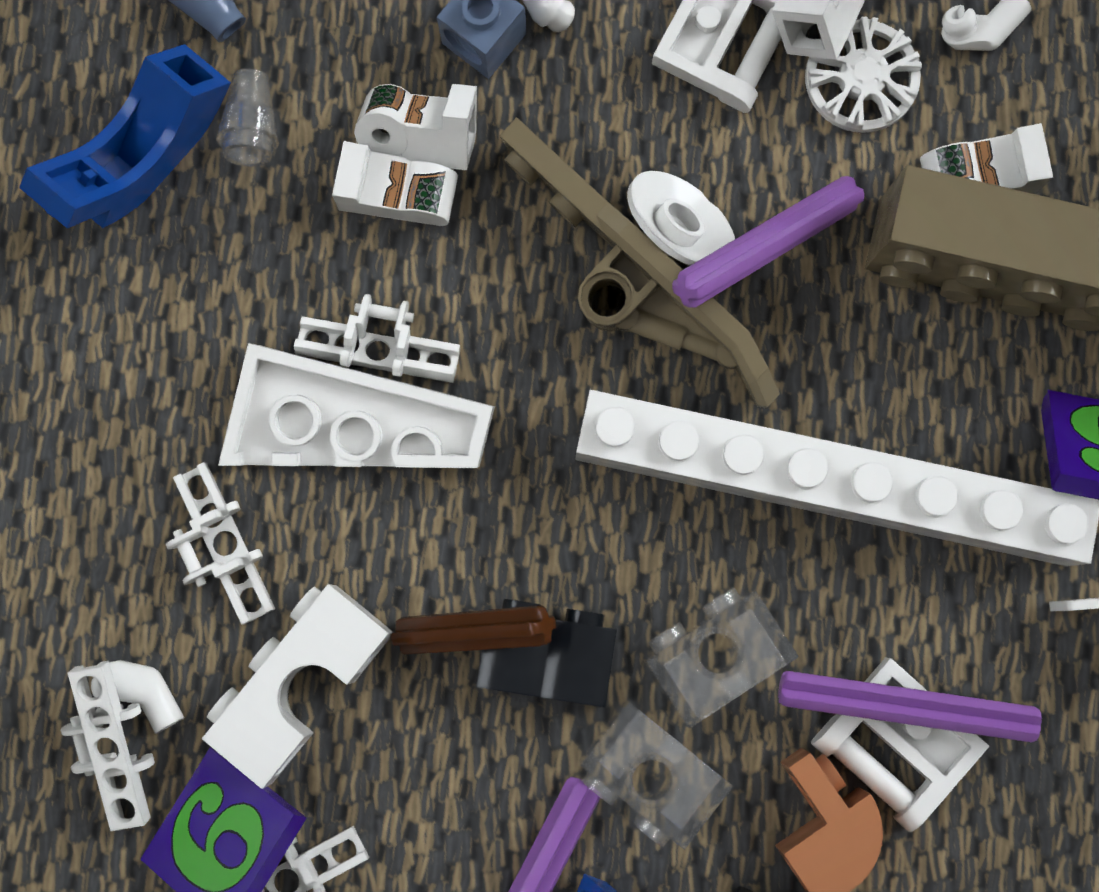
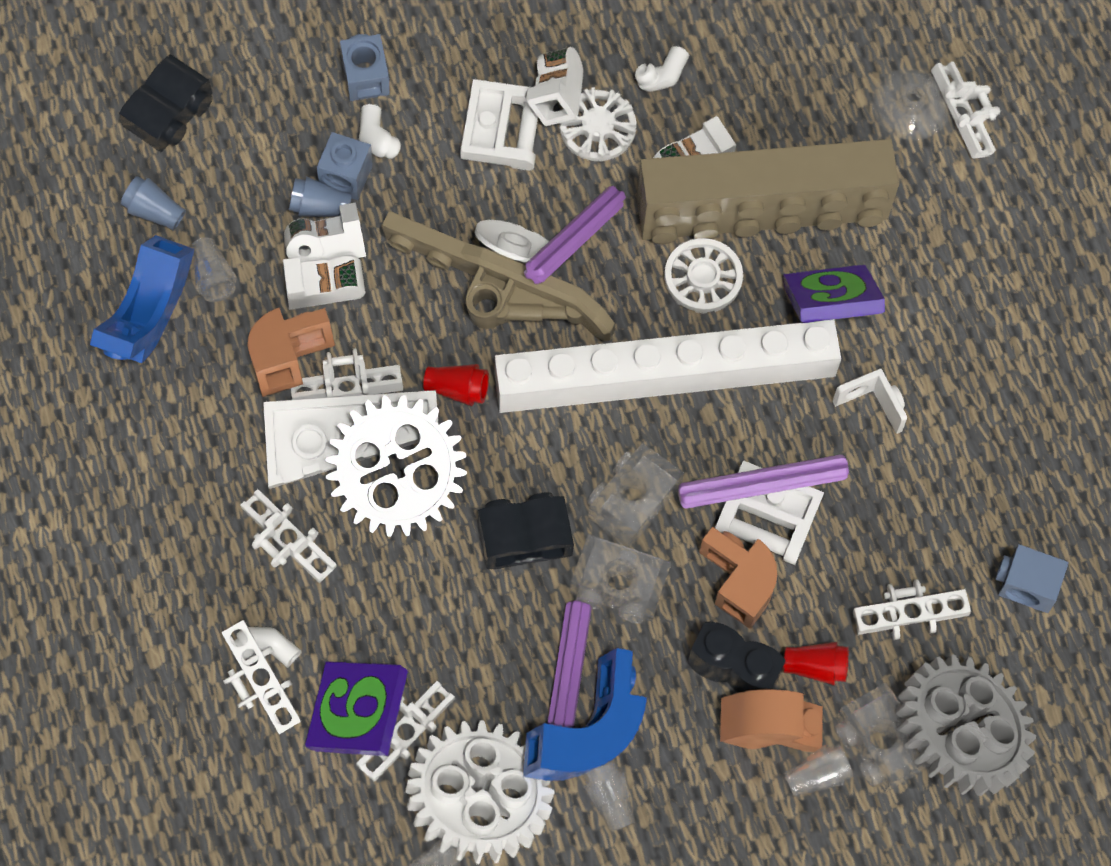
camera: 25 degrees left, 15 degrees down
(257, 725) = (380, 563): white arch -> none
(293, 263) = (278, 343): none -> nougat brick
(386, 447) = (411, 502): none -> gear
(428, 60) = (316, 199): none -> sand blue cone
(474, 630) = (472, 522): reddish brown axle -> none
(531, 401) = (459, 383): none -> red cone
(933, 353) = (703, 275): none -> white wheel

